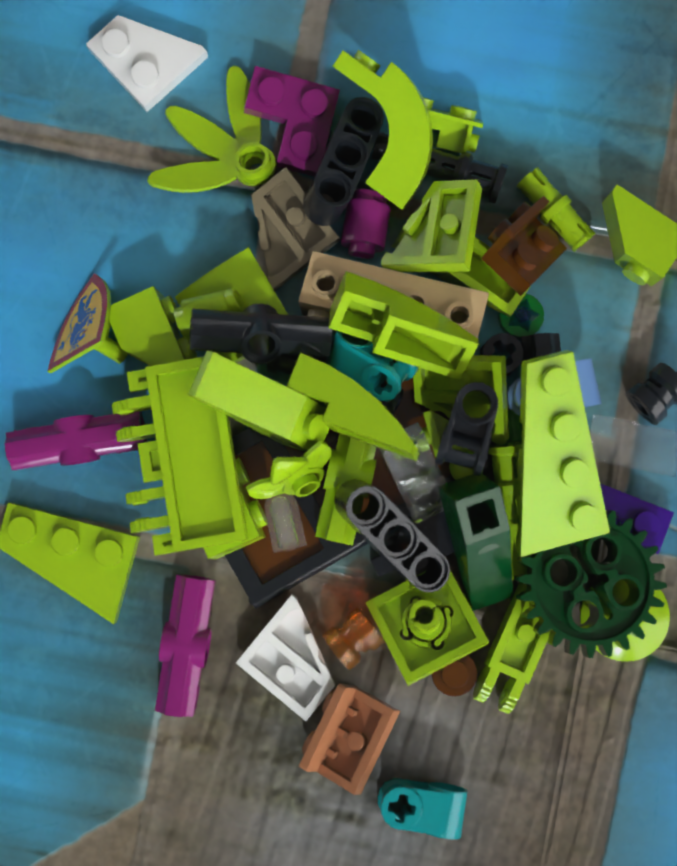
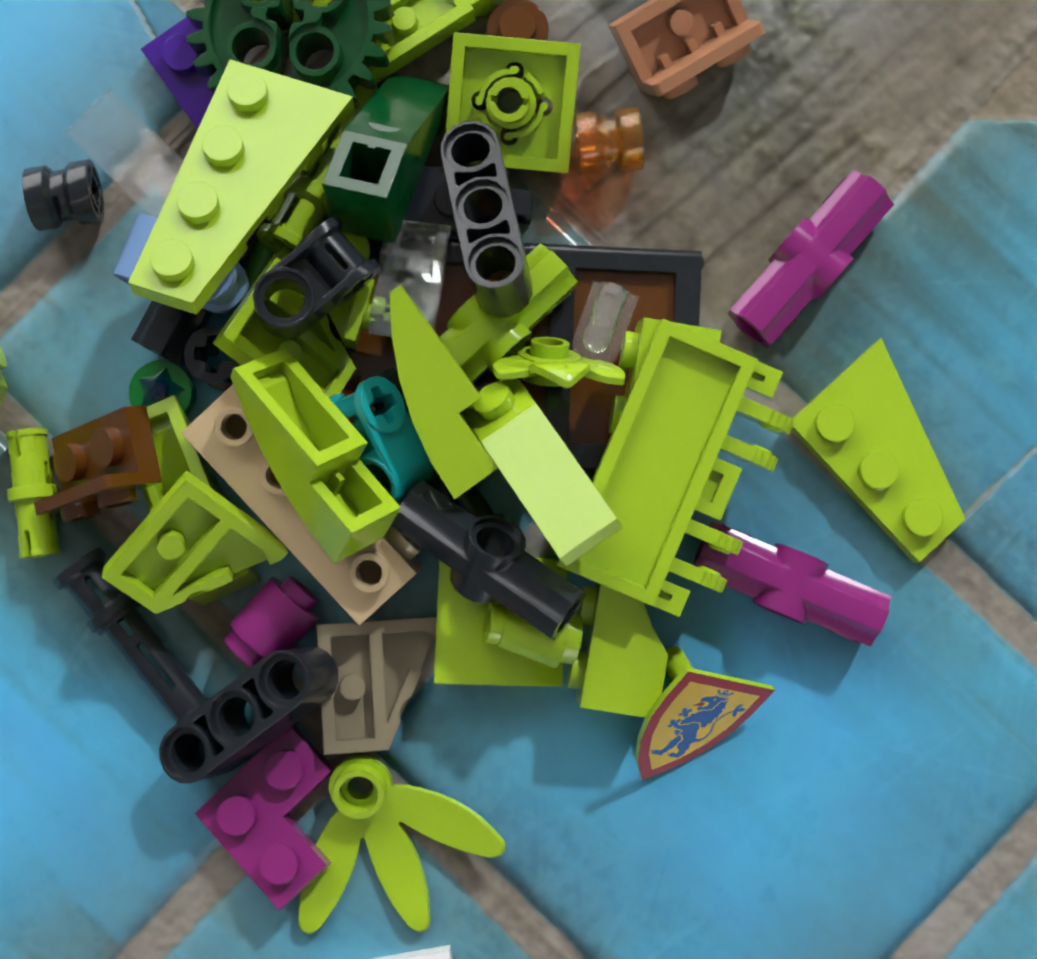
camera: 145 degrees left, 0 degrees up
(289, 661) = (700, 164): white wing -> none
(409, 122) = (160, 671): lime arch -> none
(455, 127) = (85, 676): lime hinge -> none

